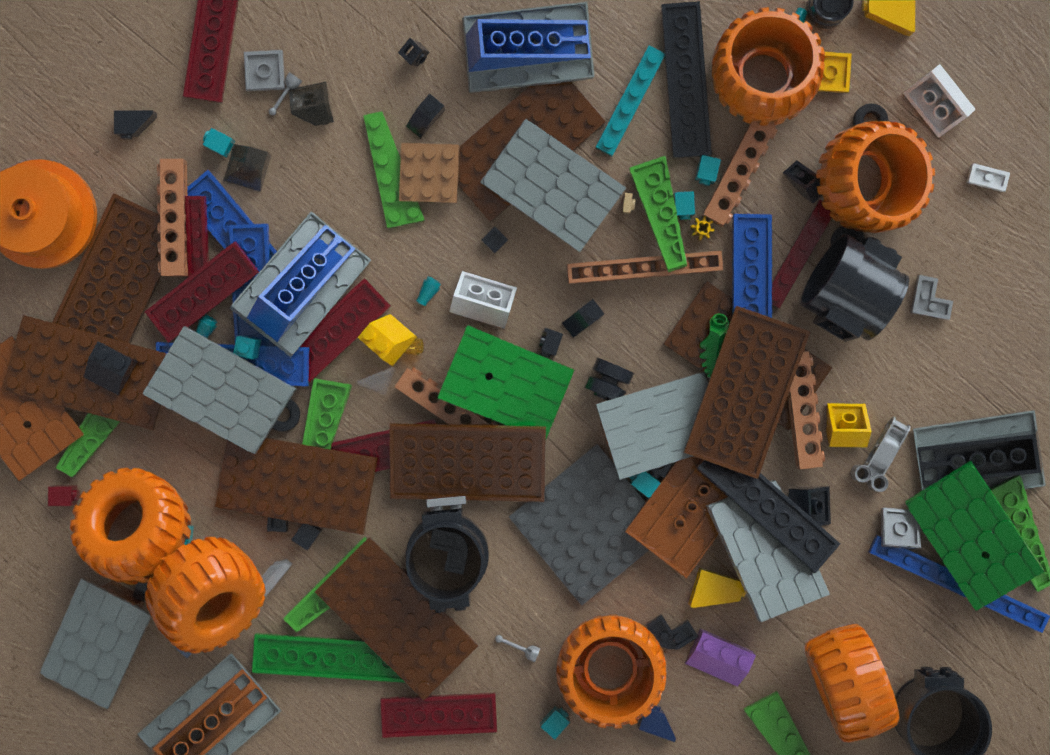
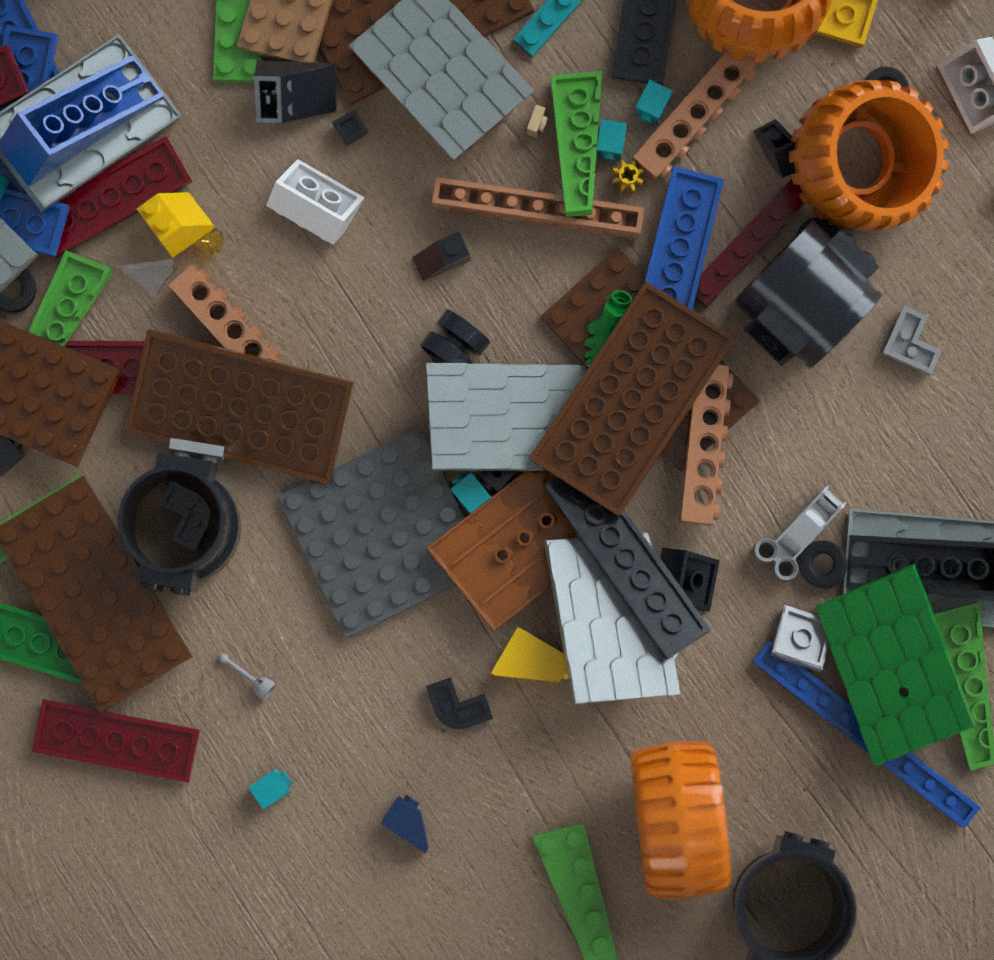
camera: 20 degrees right, 5 degrees down
(428, 290) = (246, 172): teal cone -> none
(448, 224) = (293, 90): none -> black slope
(523, 386) = (335, 325): green piece -> none
(550, 342) = (390, 278): black brick -> none
(616, 705) = (311, 739): orange tyre -> none
(720, 657) = (515, 756): medium lavender slope -> none
(847, 425) = (762, 483): yellow slope -> none
(907, 484) = (839, 564): none -> black tyre

